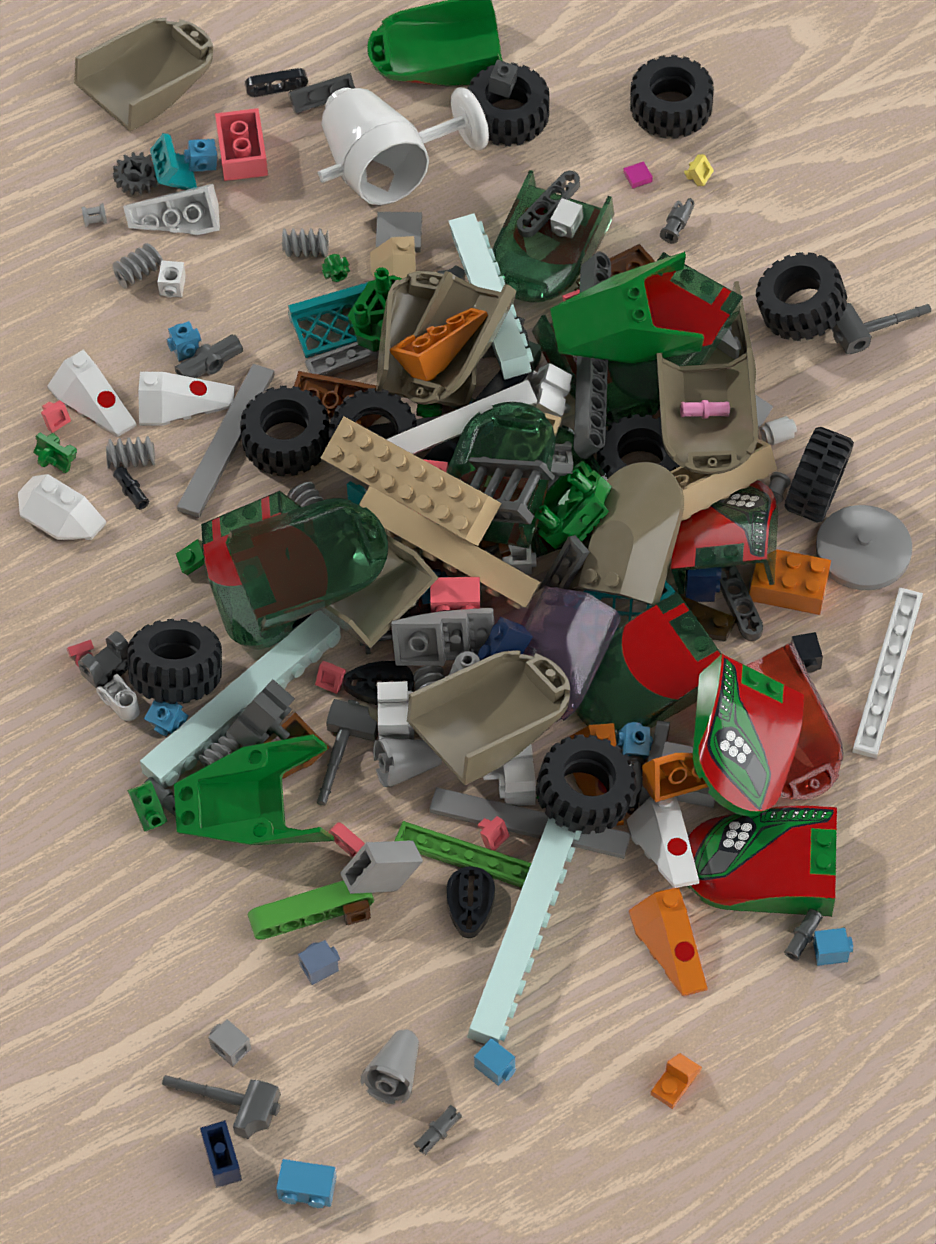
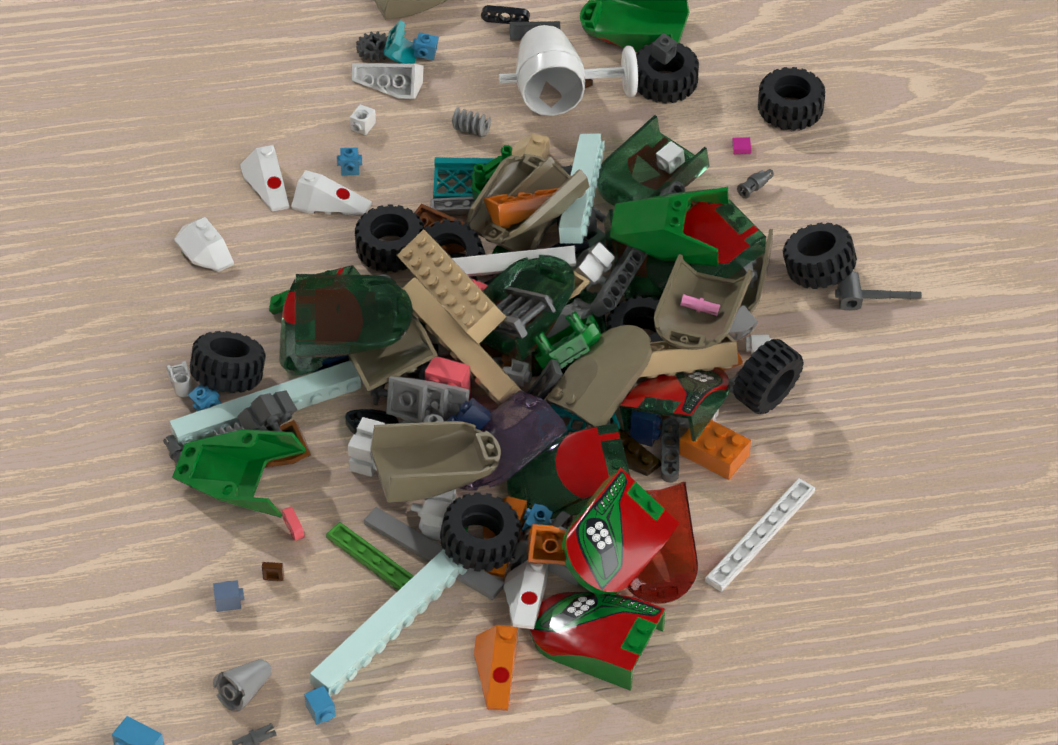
camera: 20 degrees right, 10 degrees down
(51, 452) = (219, 206): green hips -> none
(55, 415) = (233, 184): coral tile -> none
(80, 649) = (169, 338): coral tile -> none
(93, 211) = (330, 64): light grey bush -> none
(107, 663) = (178, 352): dark grey piece -> none
(130, 452) = (273, 223): light grey piece -> none
(131, 488) = (262, 246): black pin -> none
(135, 264) = (342, 103): light grey piece -> none
(147, 806) = (160, 453): green hips -> none
(210, 358) = (363, 178): dark grey piece -> none
(221, 1154) = (86, 699): dark blue brick -> none
(223, 444) = (338, 240): light grey tile -> none
(229, 1042) = (134, 628): light grey brick -> none
(241, 144) = (457, 46): coral brick -> none
(256, 1105) = (129, 677): dark grey piece -> none
(303, 910) = (239, 557): bright green beam -> none
(330, 677) = (337, 409): coral tile -> none
(335, 267) = (483, 144): green gear -> none
(346, 720) = (332, 441): dark grey piece -> none
(381, 866) = (302, 542): light grey brick -> none
(399, 225) = (548, 129): light grey tile -> none
(402, 759) = (359, 479): light grey cone -> none
(482, 899) = (365, 599): black piece -> none
(493, 832) = (401, 550): coral tile -> none
(546, 202) = (644, 154): dark grey beam -> none
(699, 170) = (789, 154): light yellow tile -> none
(803, 935) = (599, 694): dark grey pin -> none
(808, 650) = (702, 500): black brick -> none
(832, 946) = (617, 709): dark azure brick -> none
(865, 547) = (786, 443): light grey dish -> none

